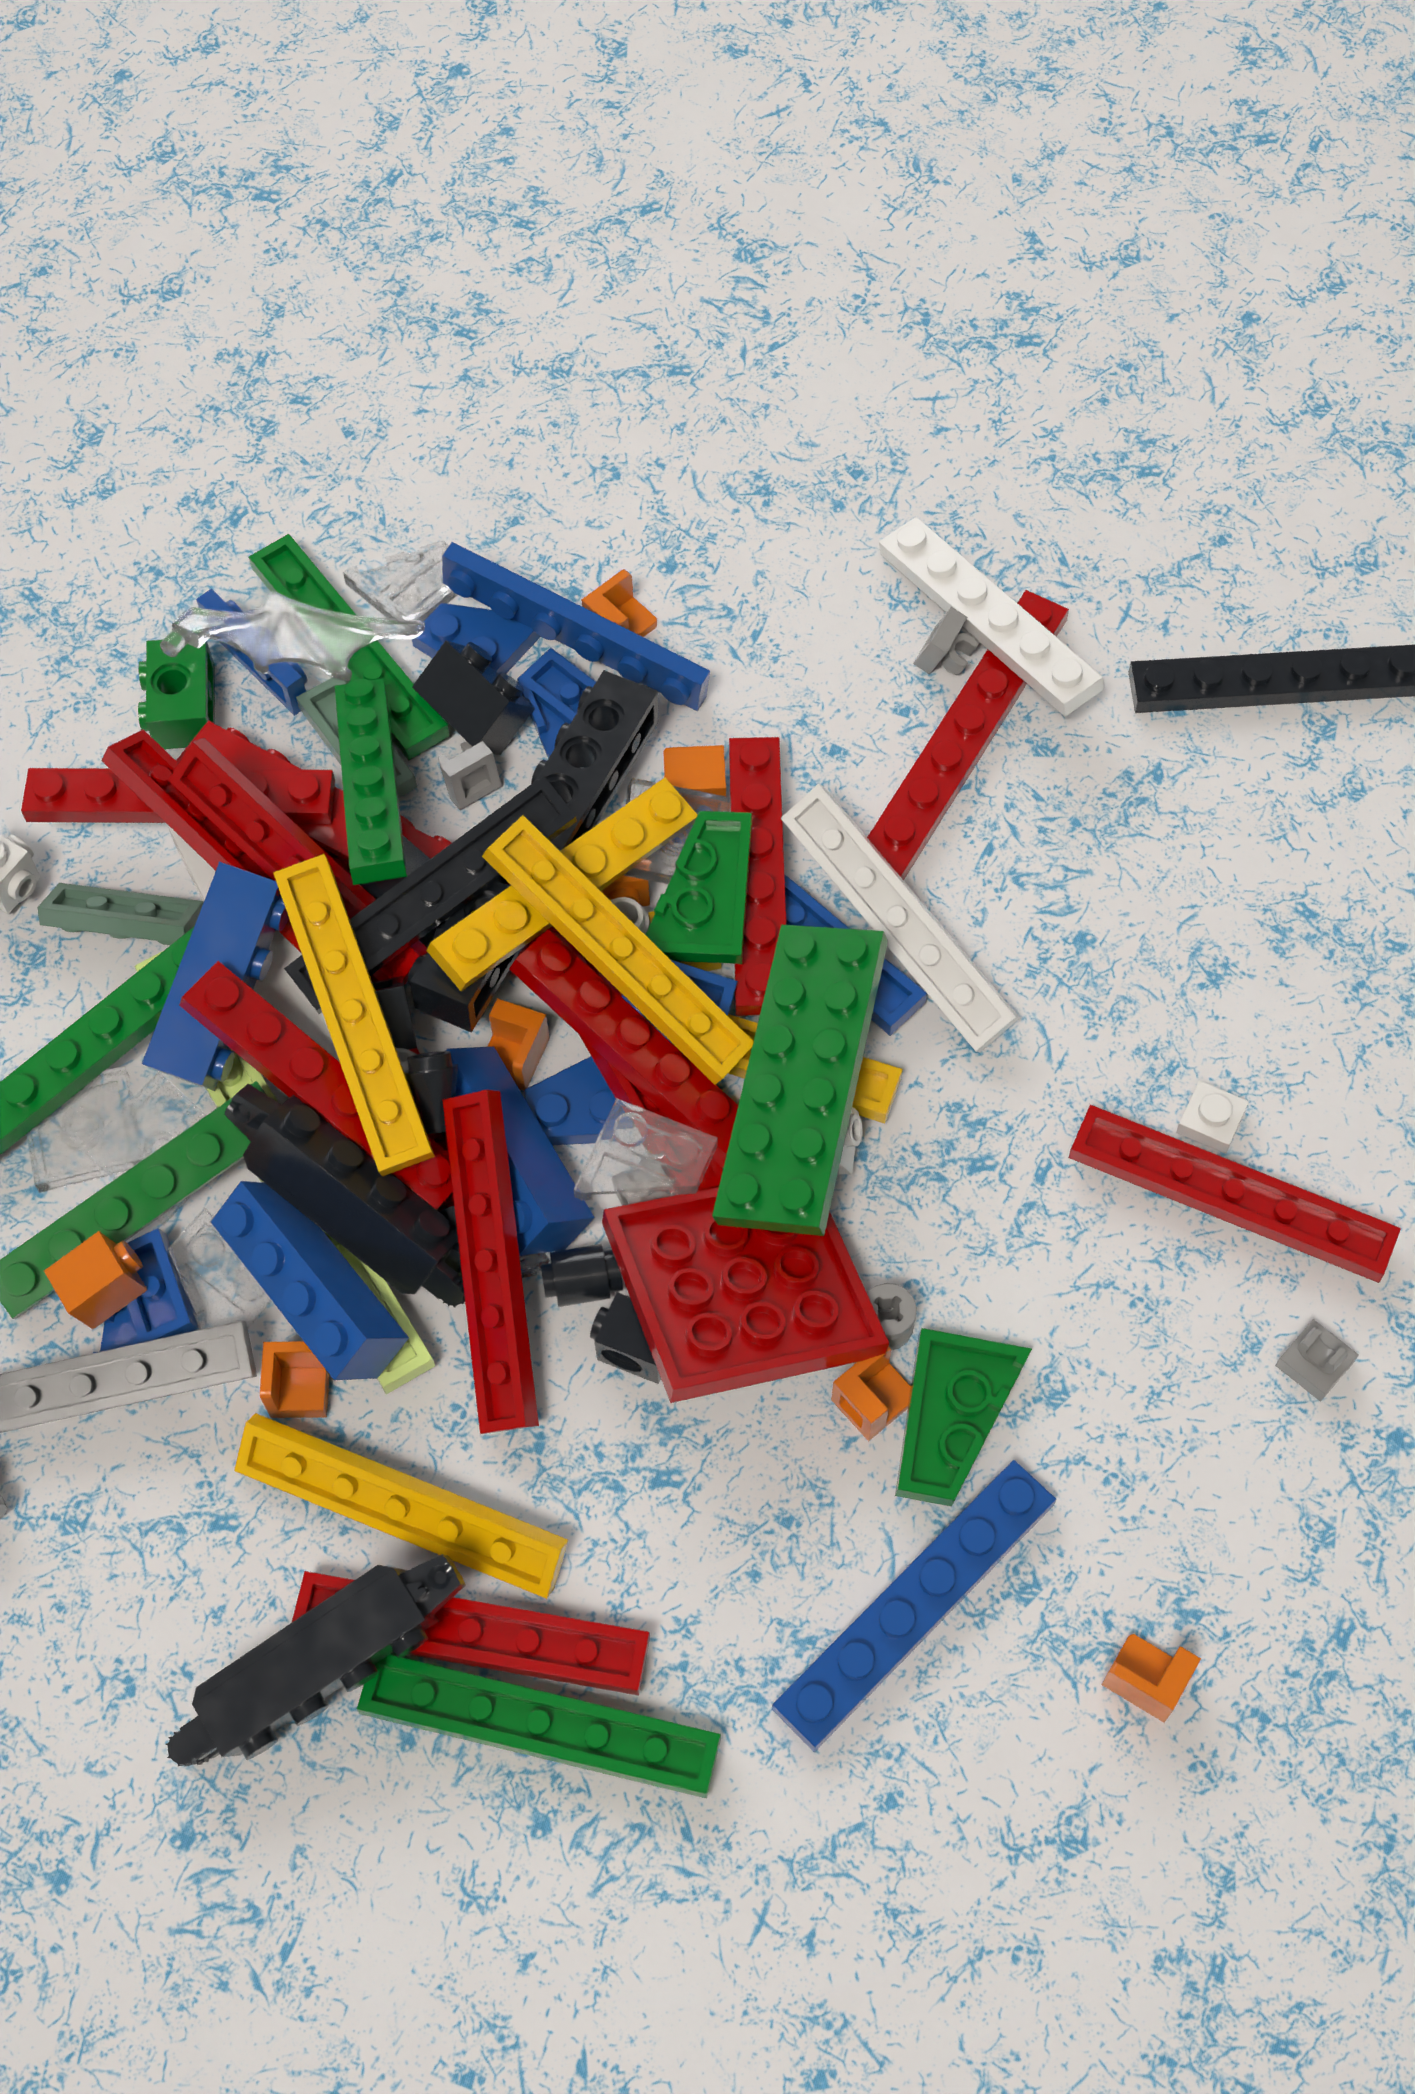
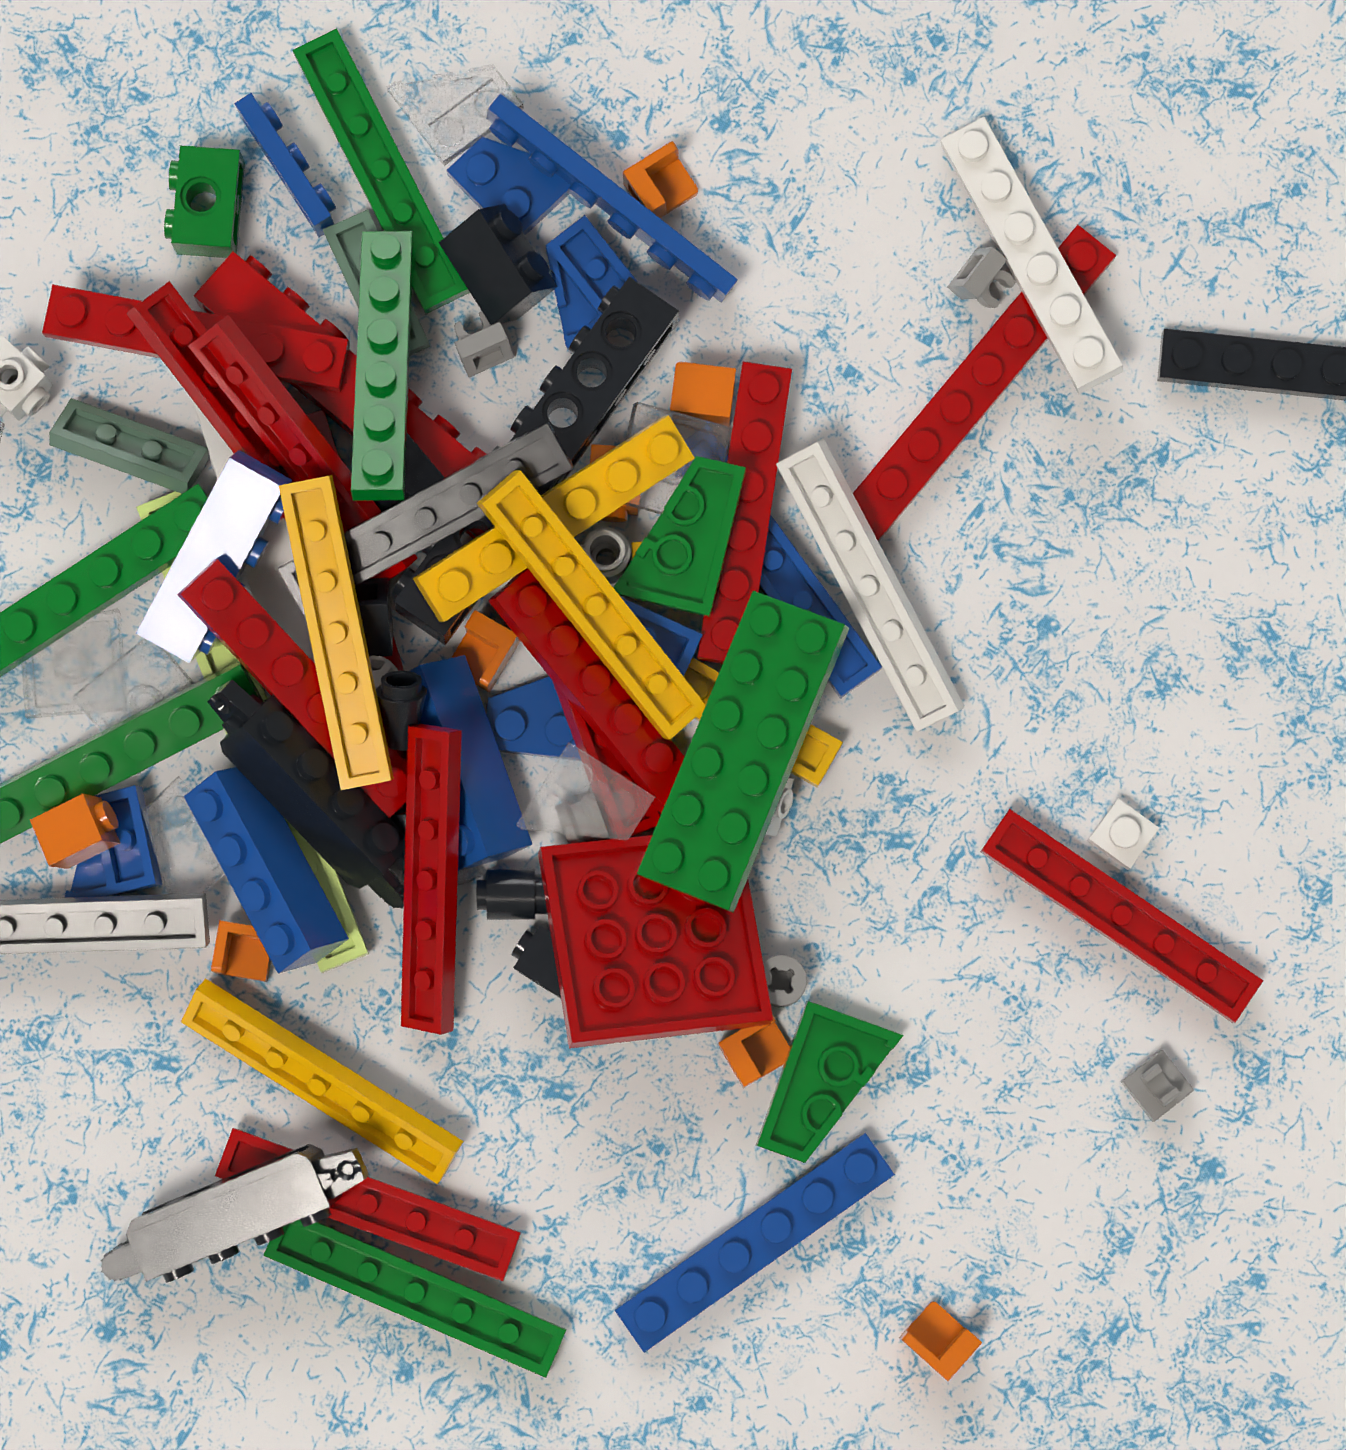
camera: 10 degrees right, 20 degrees up
(288, 633) = (323, 164): clear animal -> none

